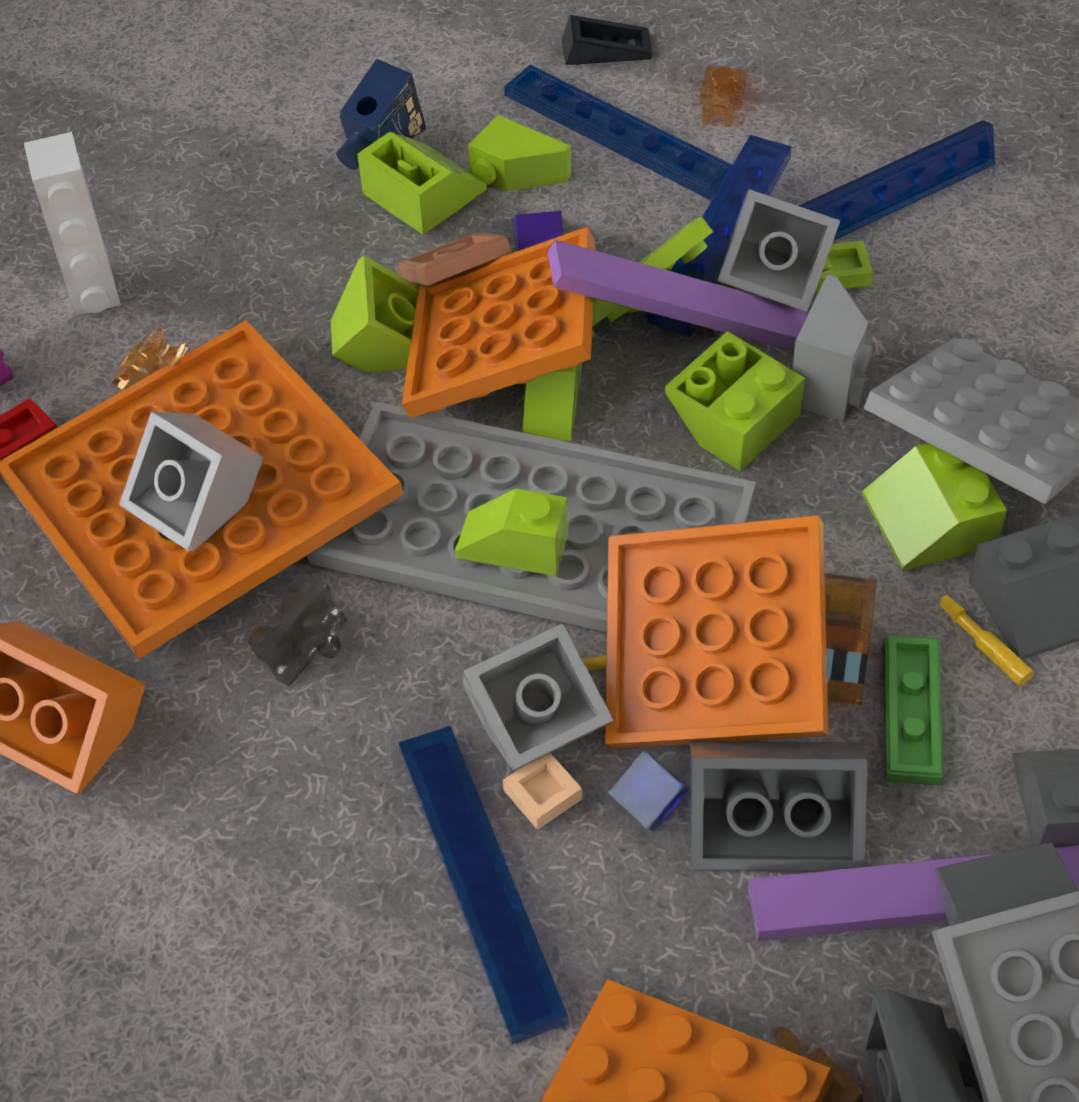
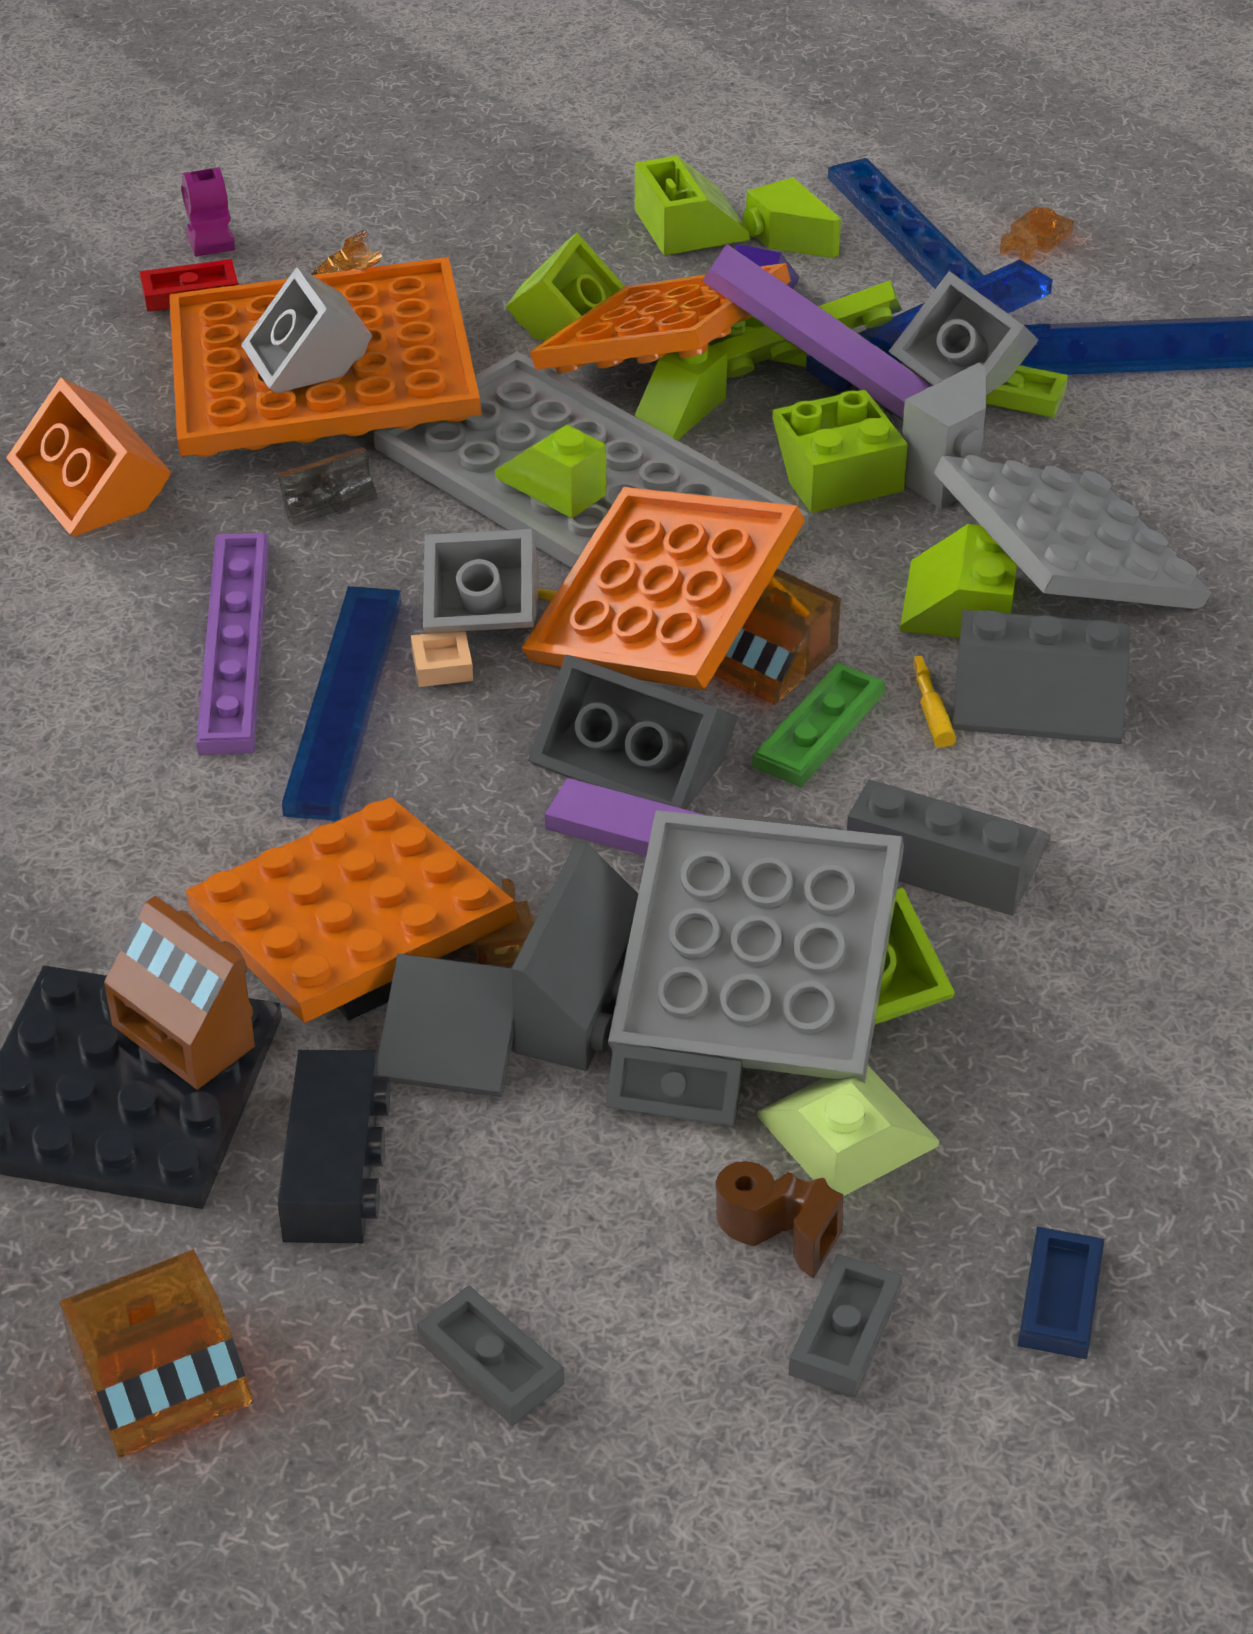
camera: 25 degrees right, 10 degrees down
(72, 223) = (340, 131): white brick -> none
(331, 860) = (233, 645): none -> medium lavender tile
(379, 105) = (696, 135): dark blue torso -> none
(453, 258) = (659, 268): nougat tile -> none
(591, 41) = (954, 161): black slope -> none
(648, 791) = (528, 689): clear blue tile -> none

